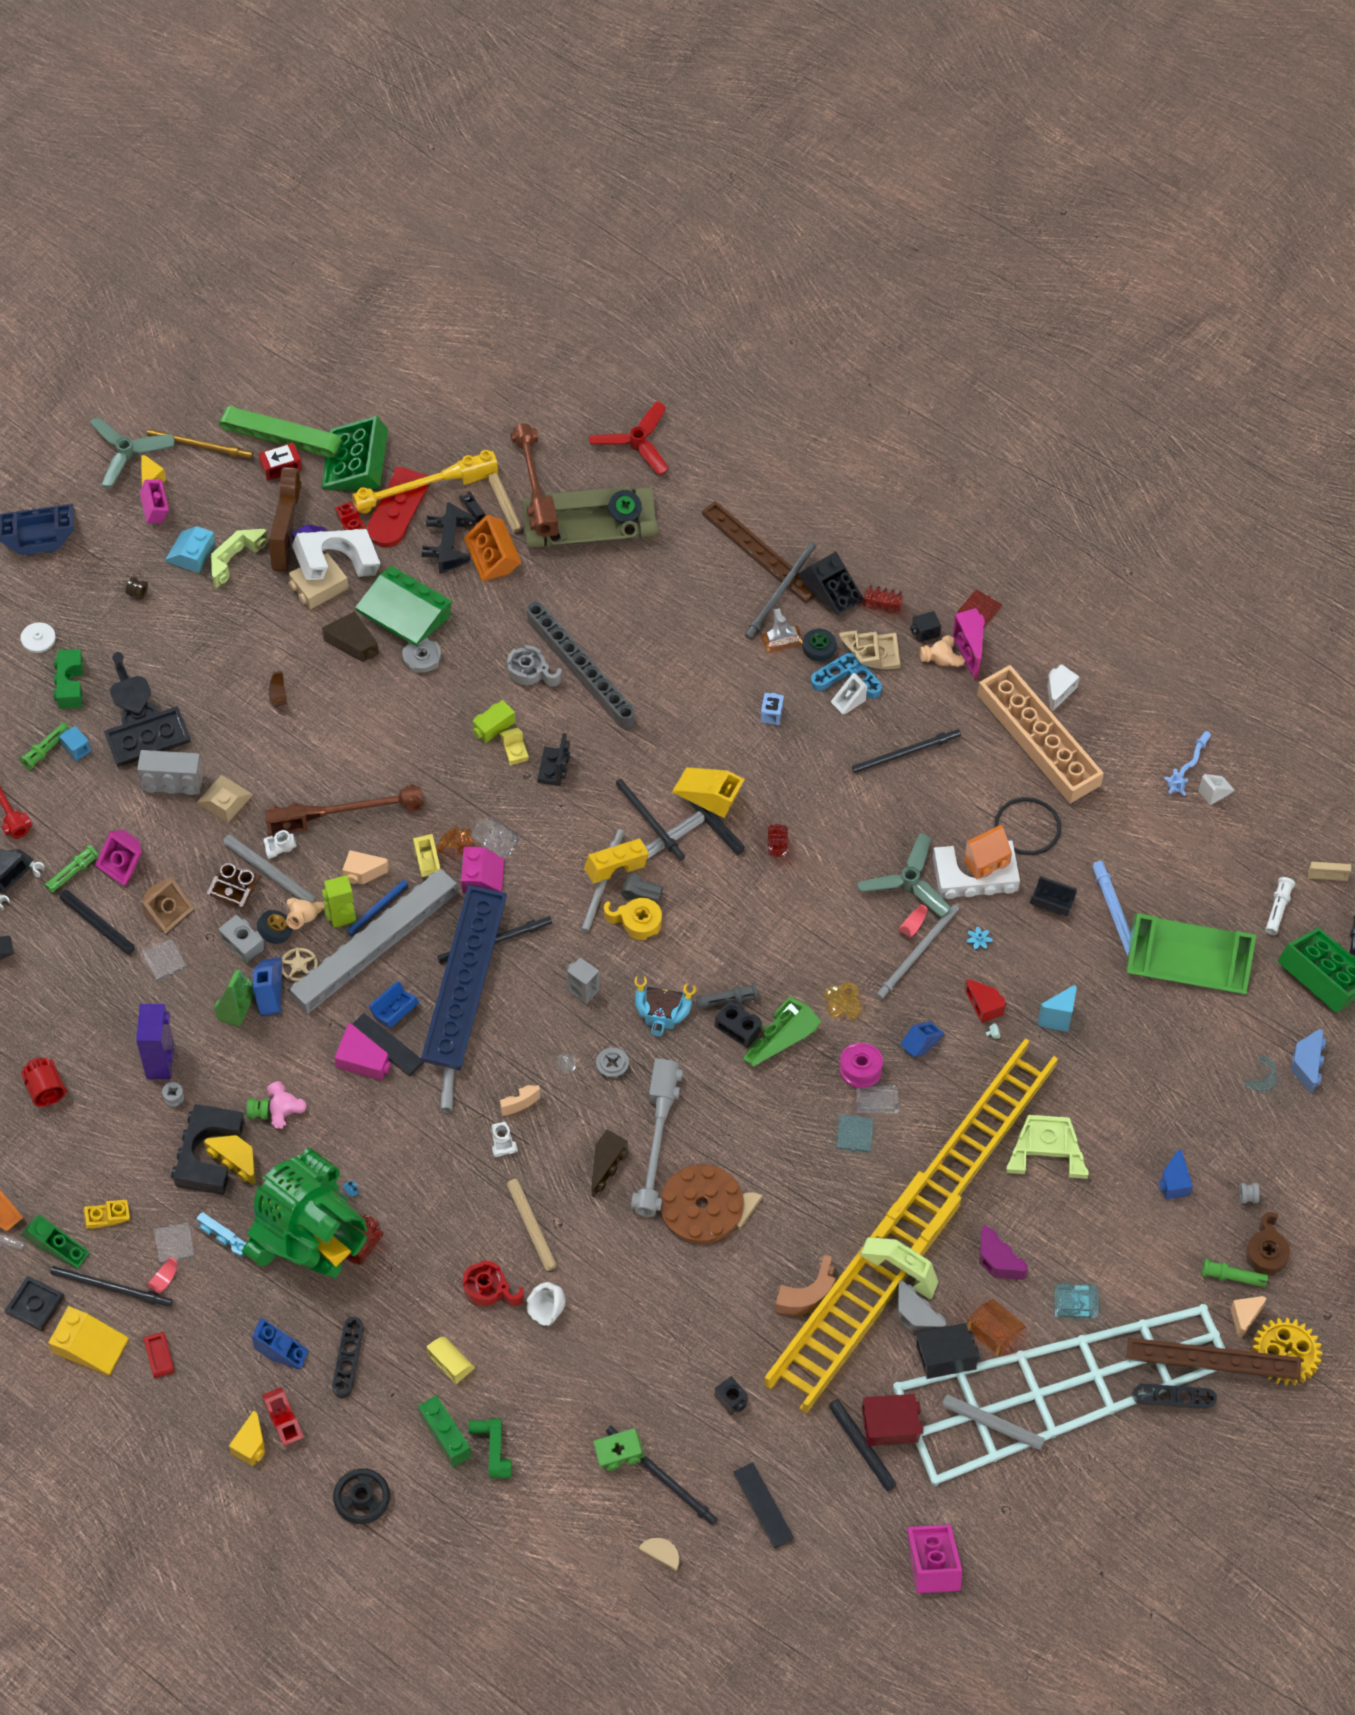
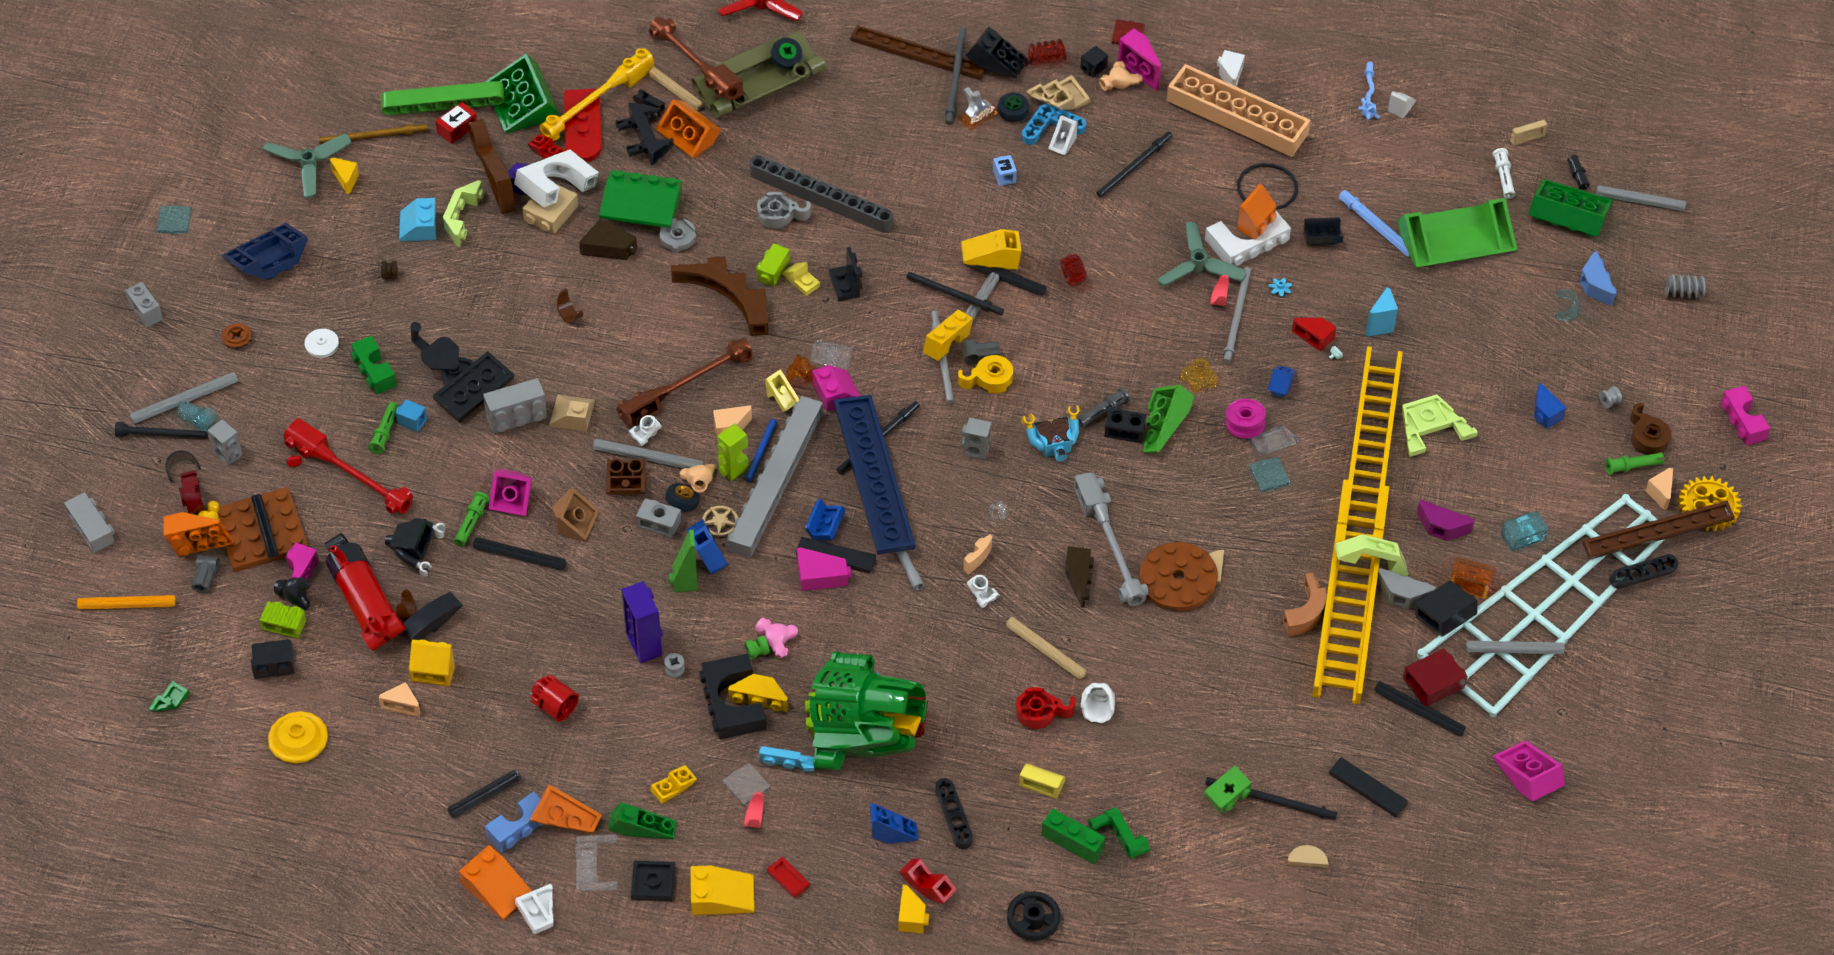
camera: 25 degrees left, 5 degrees down
(150, 1297) = (753, 834): black bar -> none
(154, 501) = (363, 192): dark pink brick -> none
(164, 959) = (597, 561): clear piece -> none
(445, 728) = (731, 285): none -> reddish brown arch
(612, 1054) = (1032, 490): light grey gear -> none
(729, 1387) = (1291, 706): black brick -> none

